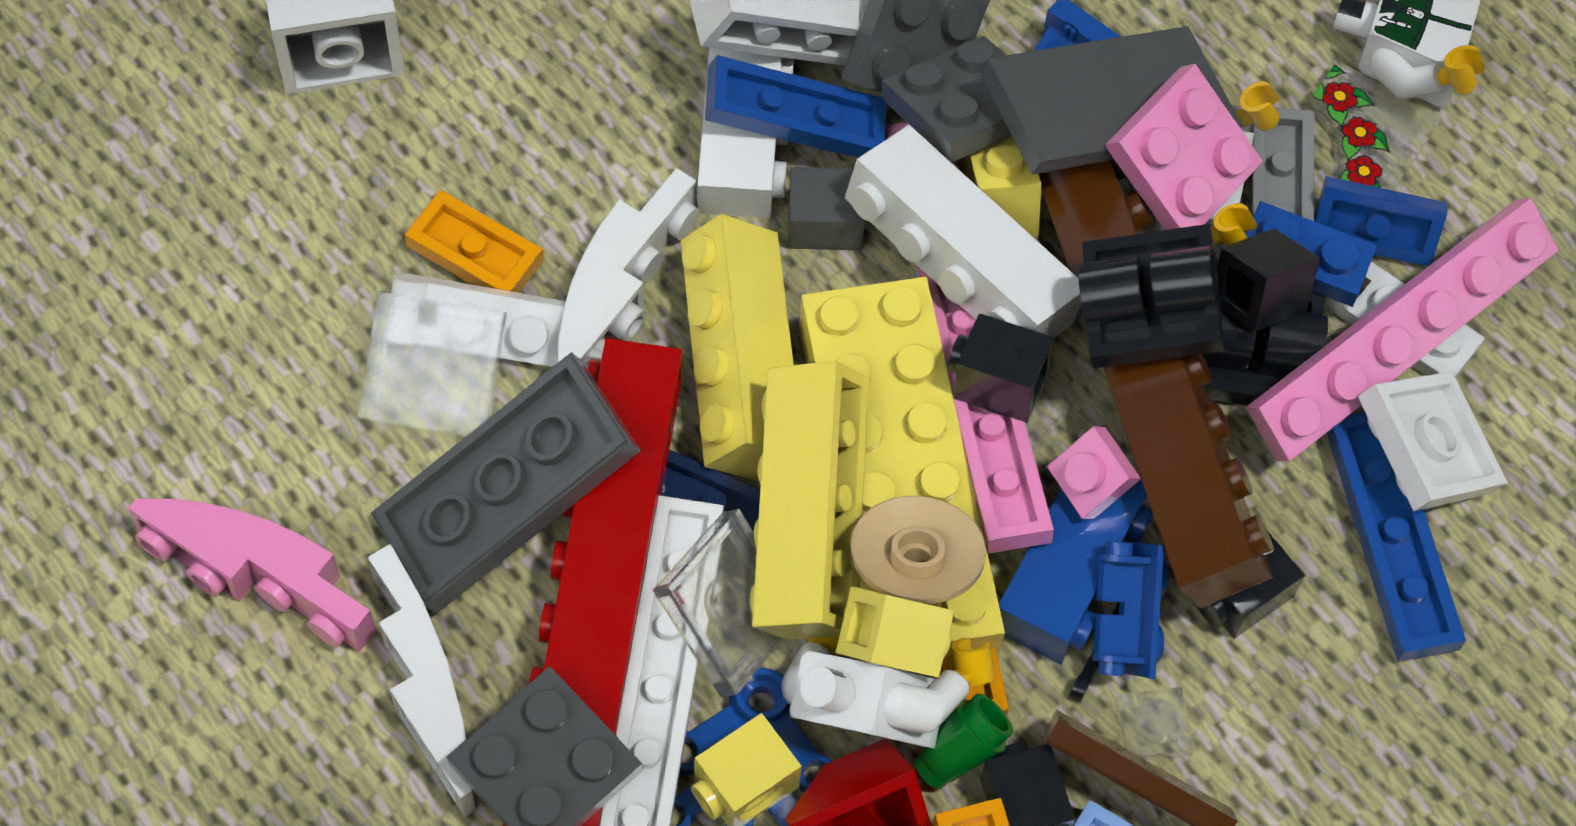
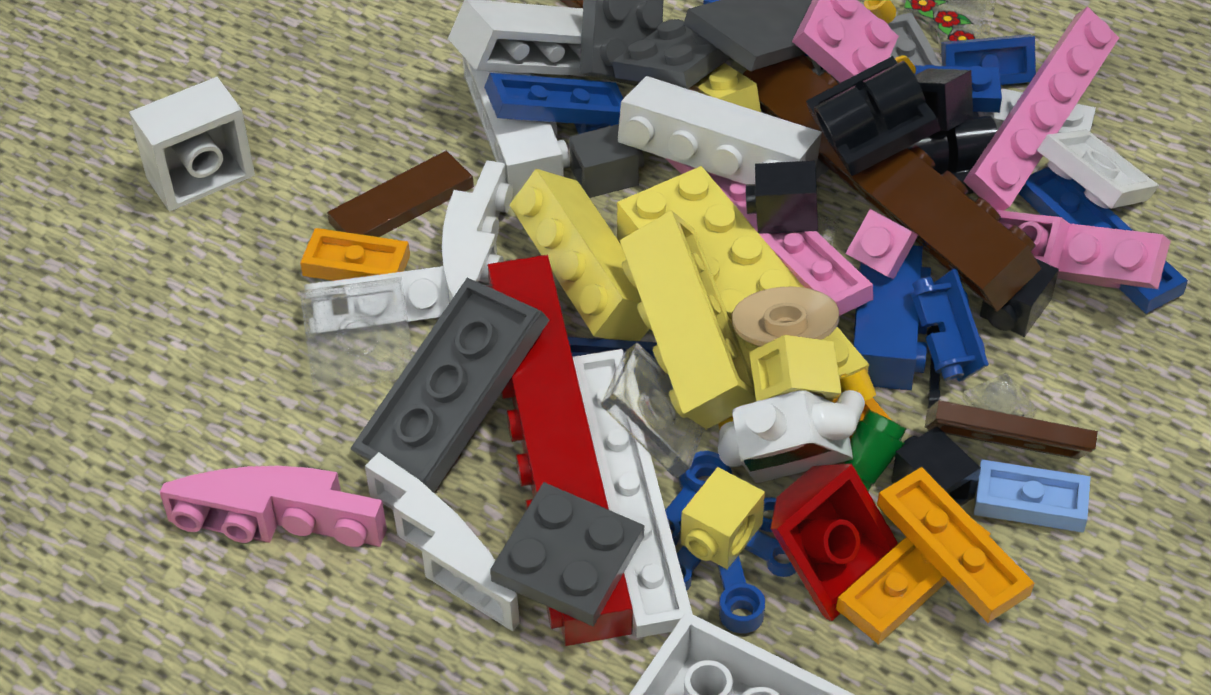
camera: 15 degrees left, 15 degrees down
(564, 174) = (402, 197): none -> reddish brown tile
(1341, 551) = (1094, 253): none -> bright pink slope

